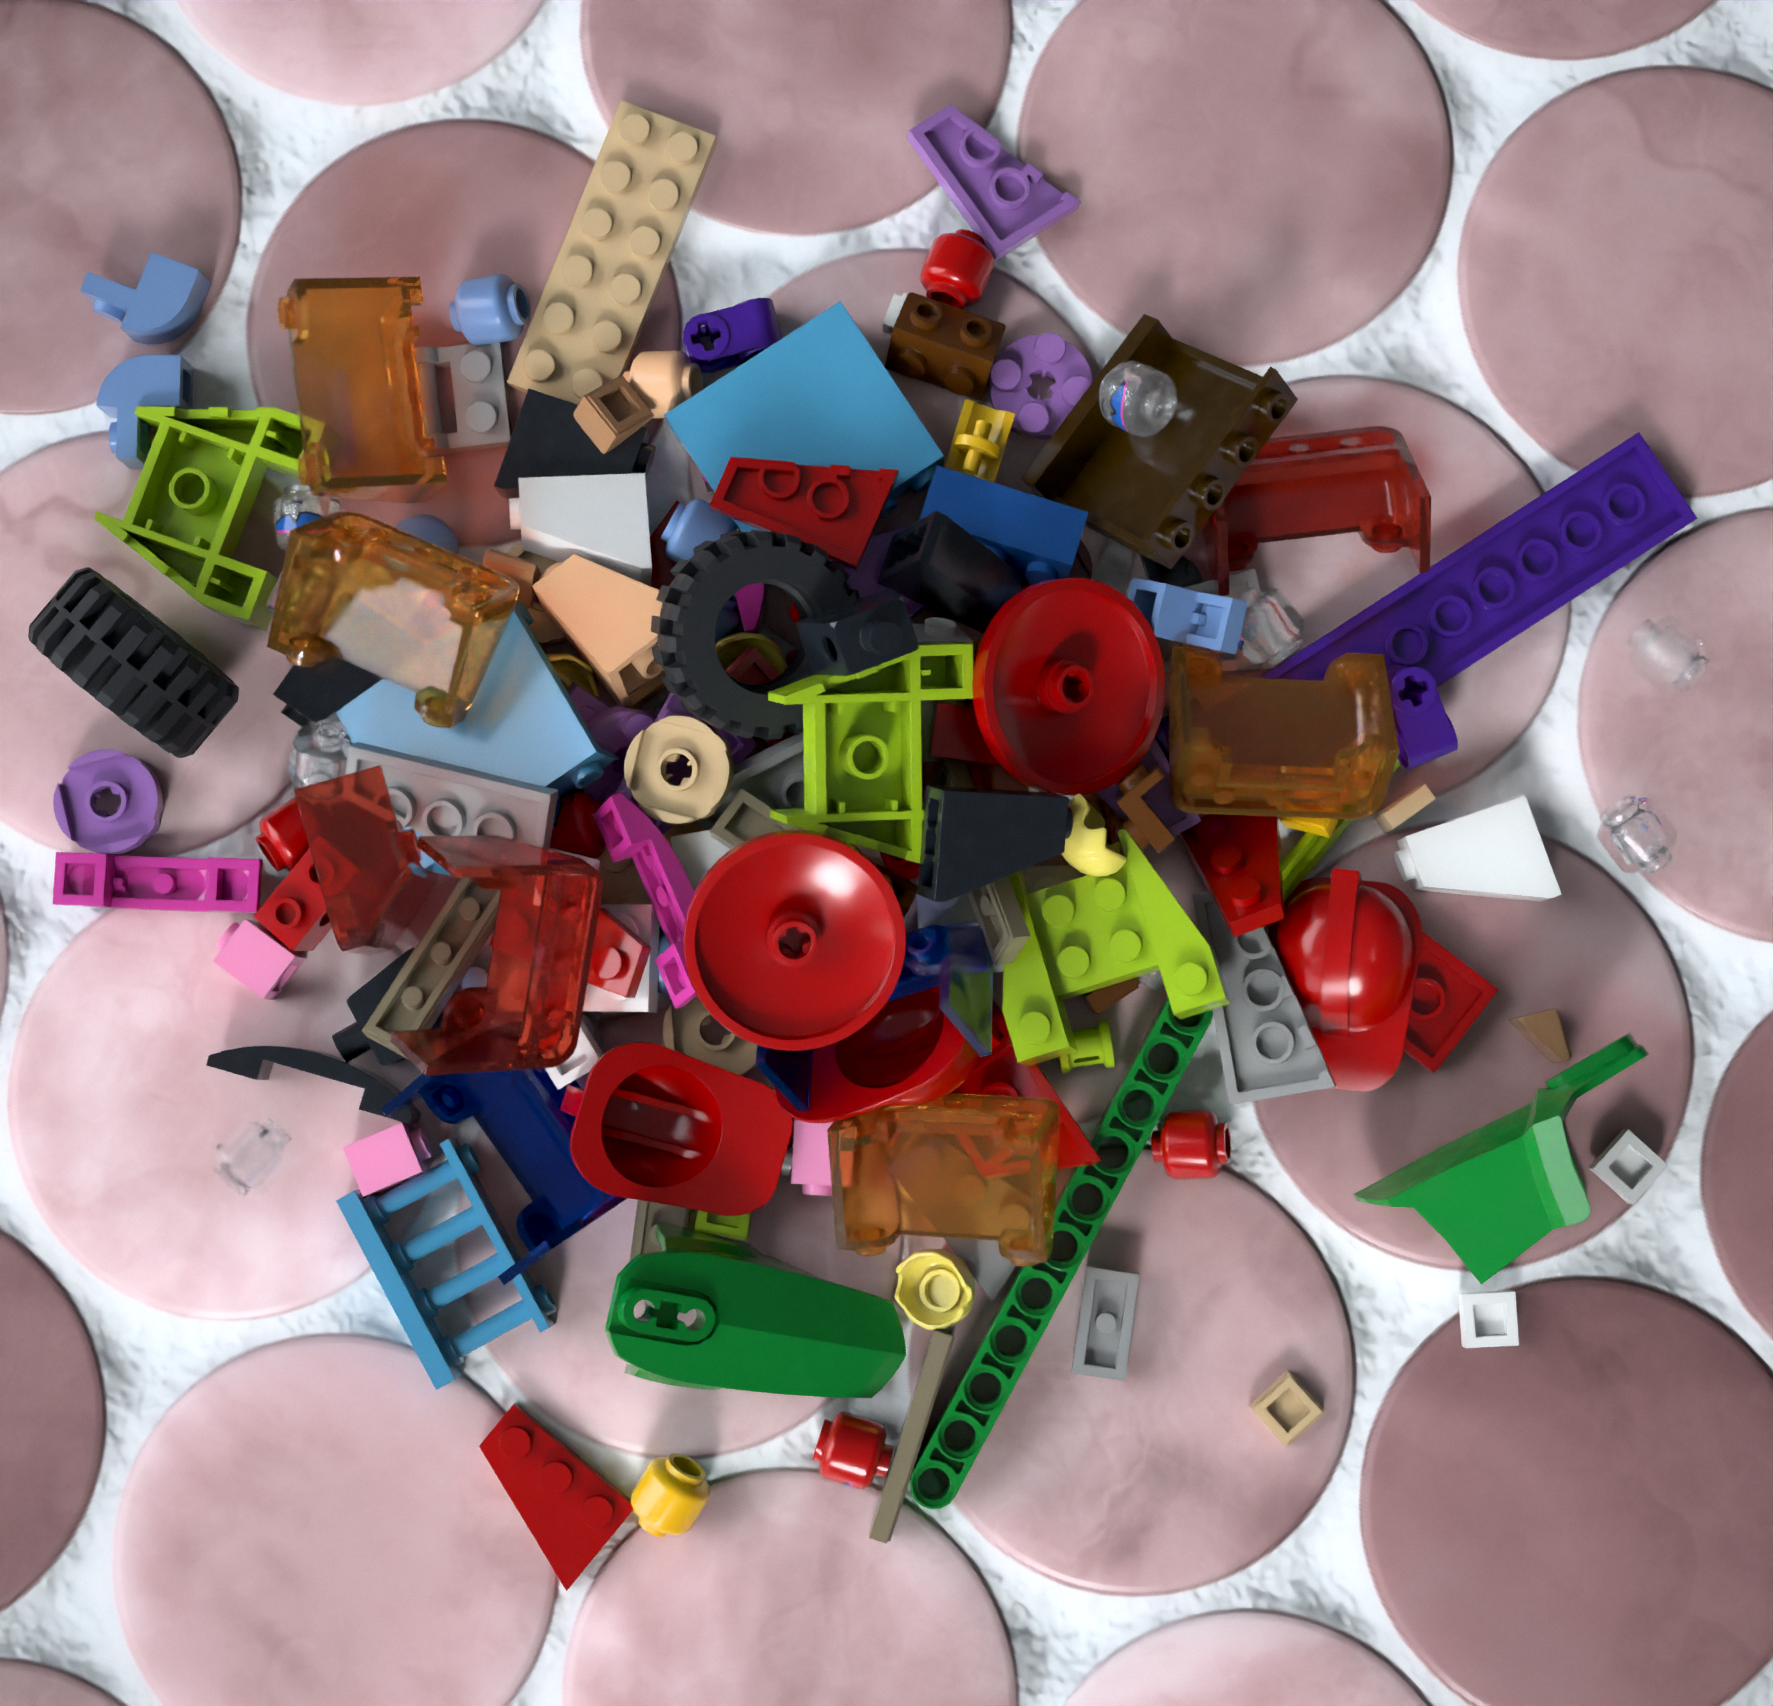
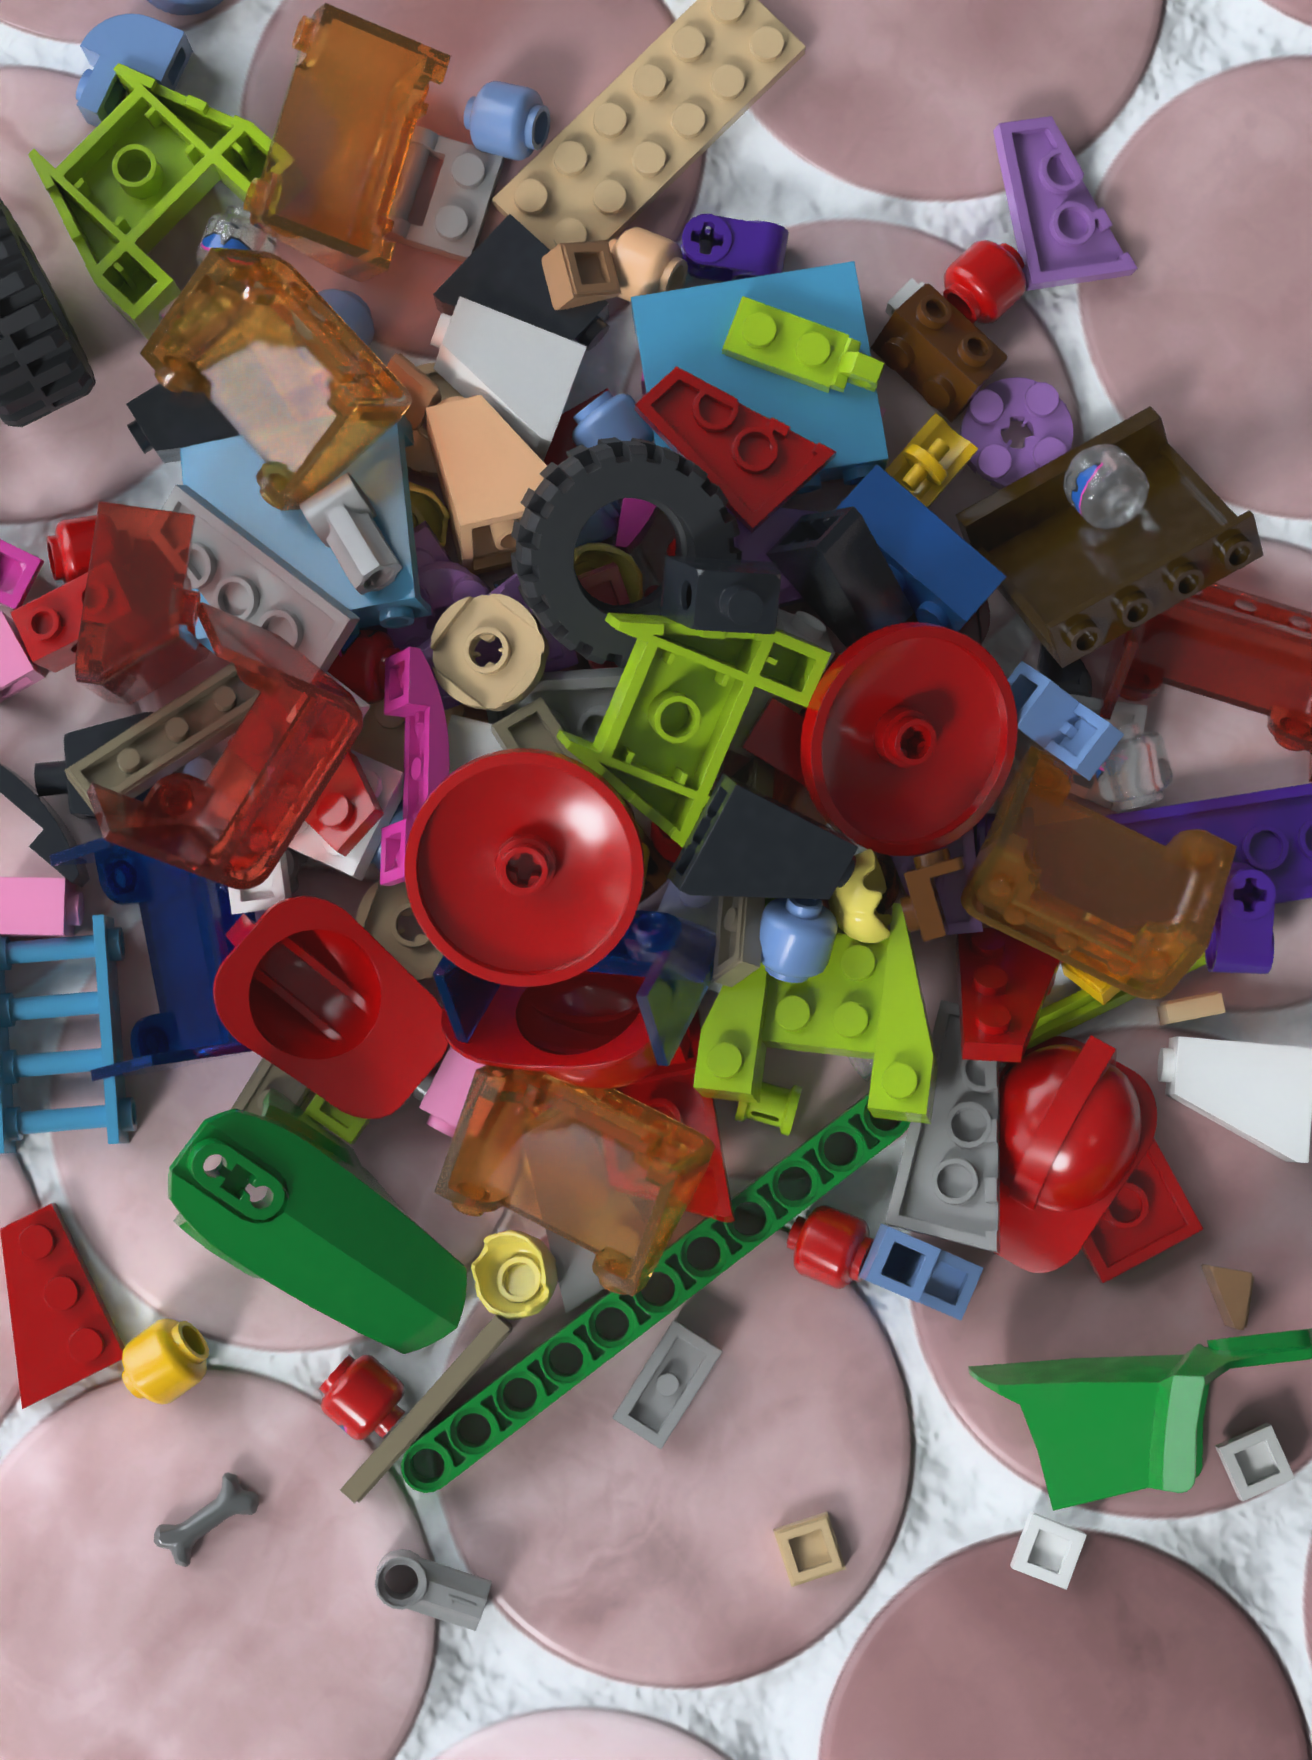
camera: 20 degrees right, 0 degrees up
(318, 753) = (145, 478): clear head -> none
(510, 715) = (346, 524): none -> light grey piece
(752, 1637) = (183, 1536): none -> dark grey piece
(827, 396) = (799, 349): none -> lime hinge
(990, 1586) = (439, 1590): none -> light grey piece
(1050, 897) = (796, 938): none -> medium blue head
(1107, 996) = (813, 1063): reddish brown tile -> none
(1277, 1132) = (920, 1272): none -> medium blue brick

